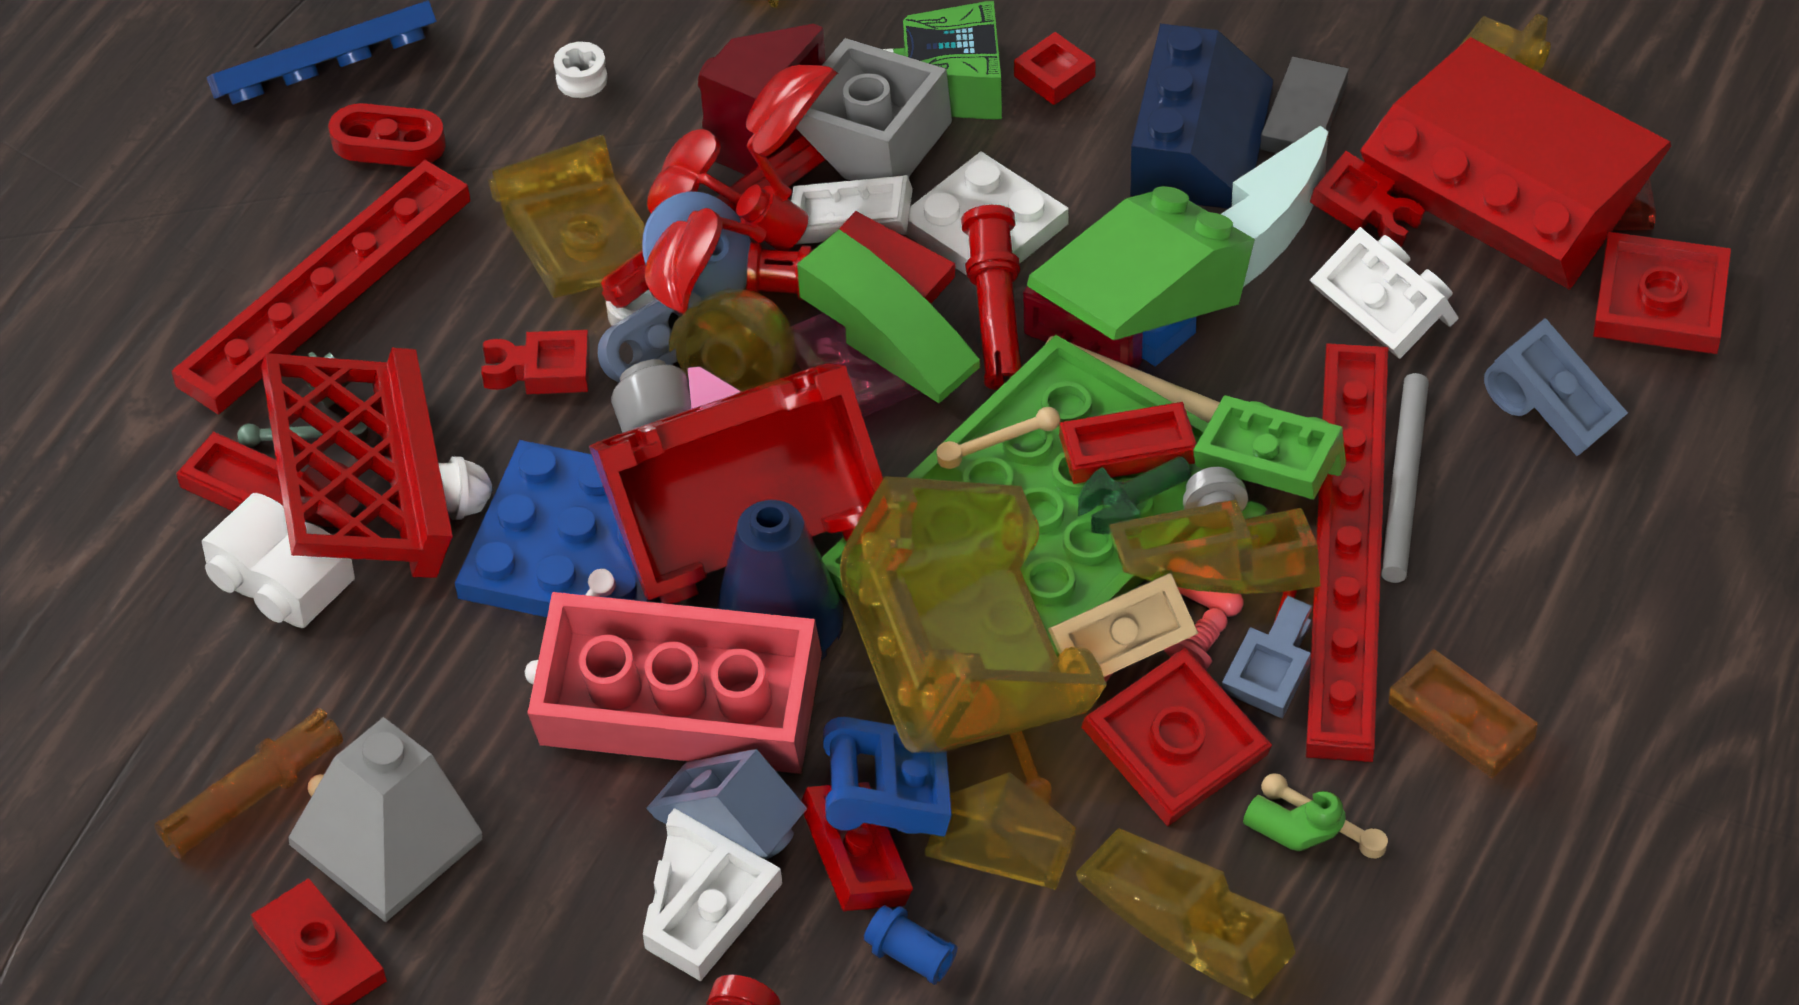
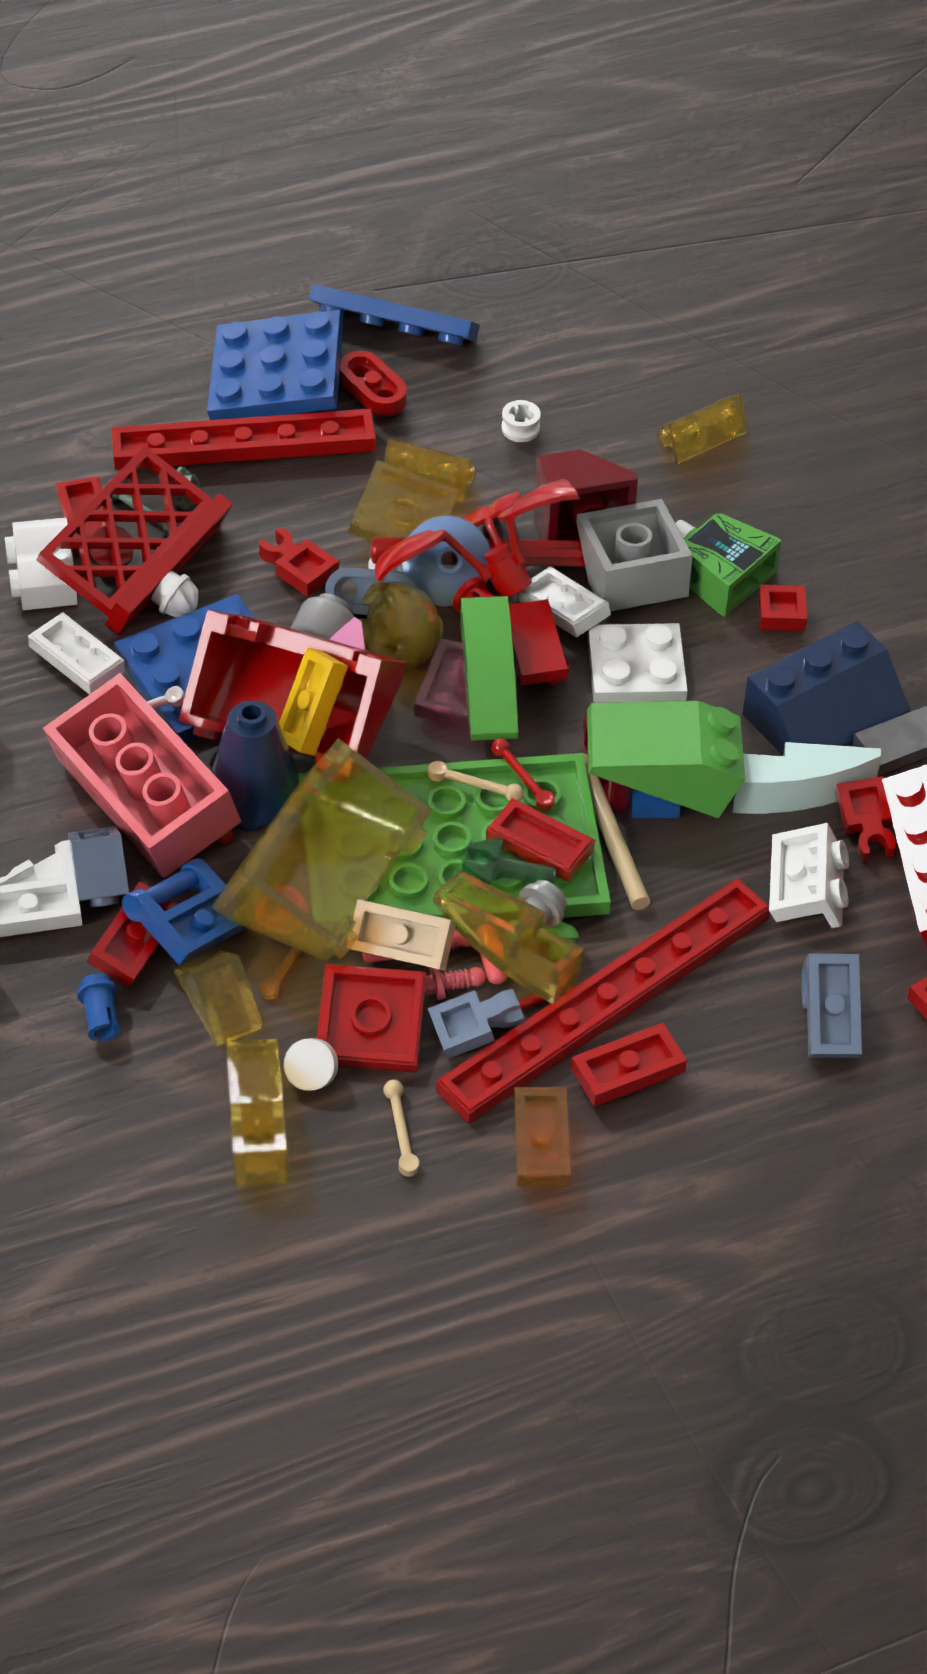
camera: 40 degrees right, 0 degrees up
(266, 187) = (276, 366): none -> plate
(428, 624) = (76, 653): none -> white plate
(781, 460) = (311, 700): none -> yellow plate
(992, 272) = (585, 688): red pin -> none
(1080, 403) = (544, 798): none -> red hinge
(1182, 822) = (310, 1064): none -> white tile
(1271, 446) = (610, 902): bright green bracket -> none
(1297, 827) = (375, 1119): bright green arm -> none
(1405, 478) = (688, 987): light grey bar -> none
(1451, 586) = (628, 1064): none -> red plate

